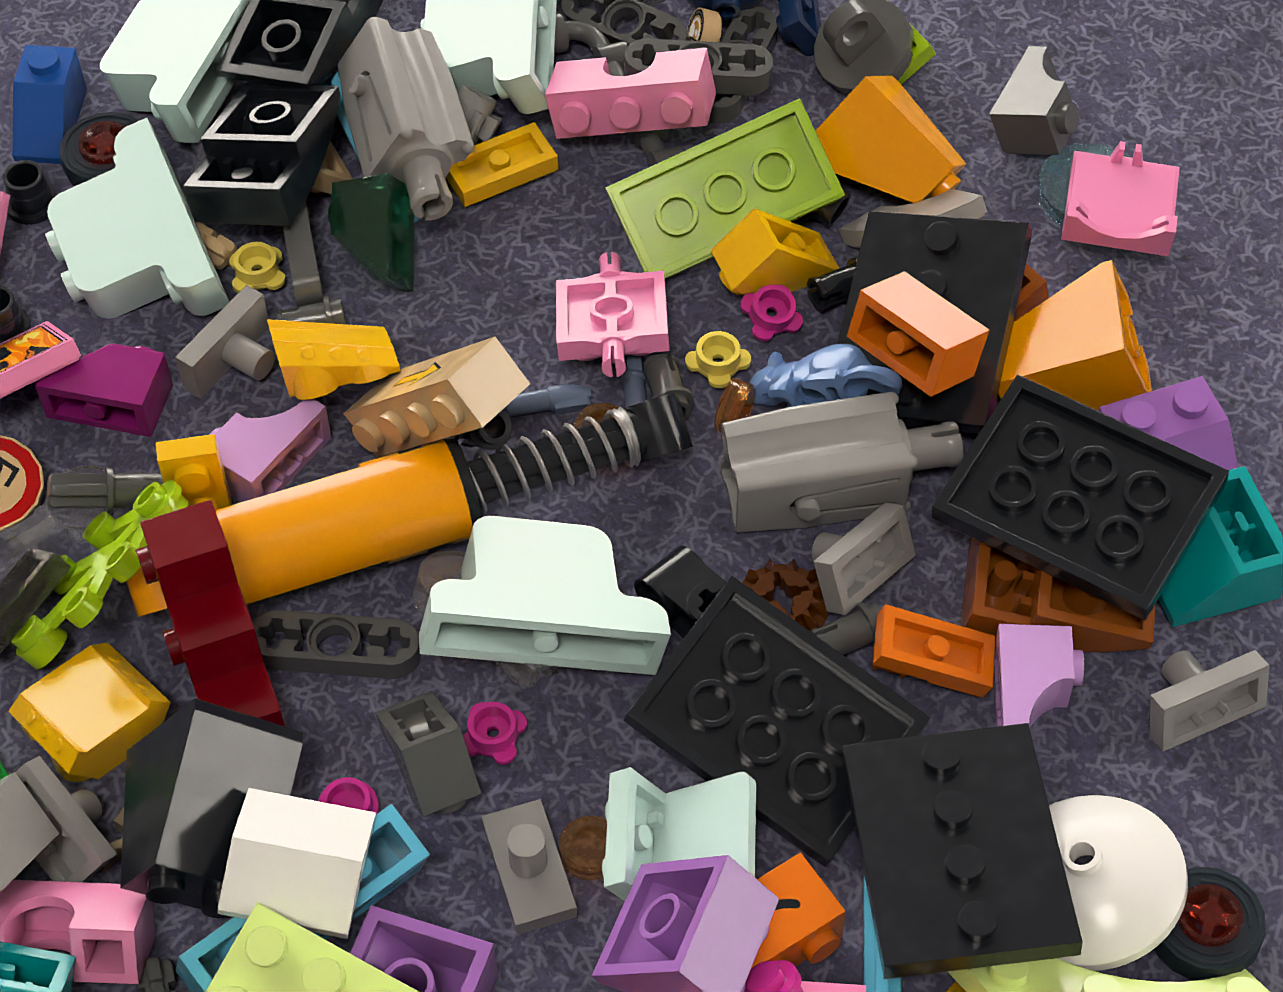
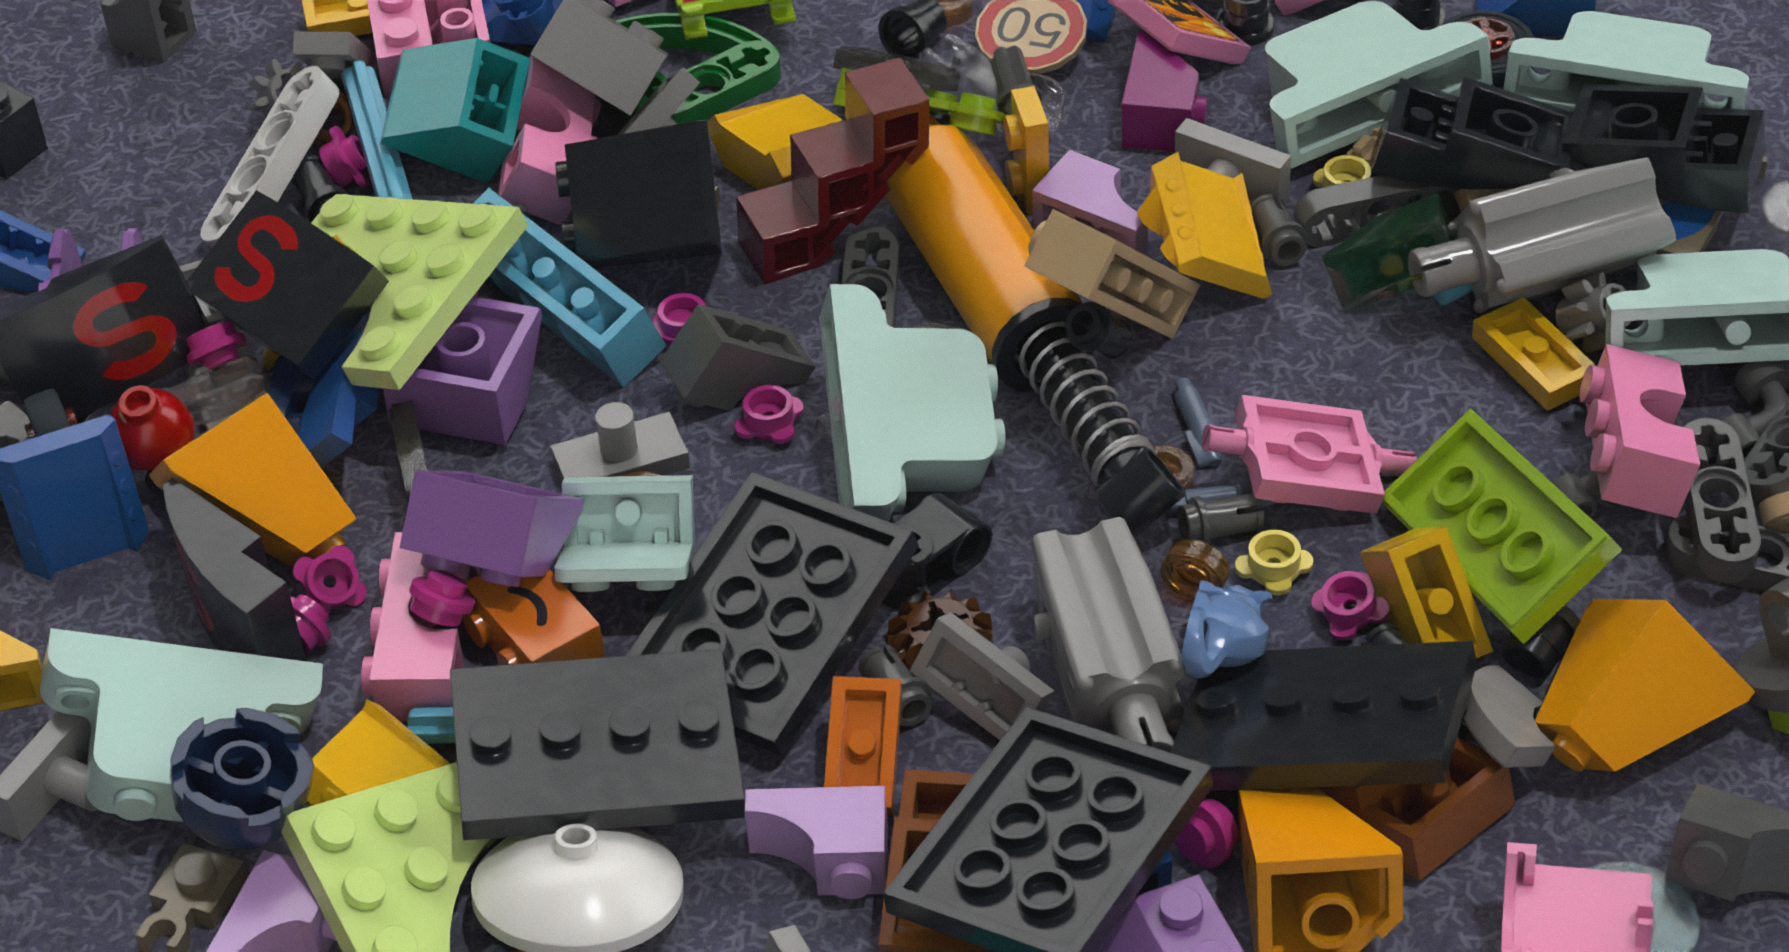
camera: 90 degrees right, 10 degrees down
(297, 861) = (578, 242): white slope -> none
(917, 333) = (1250, 660): orange brick -> none

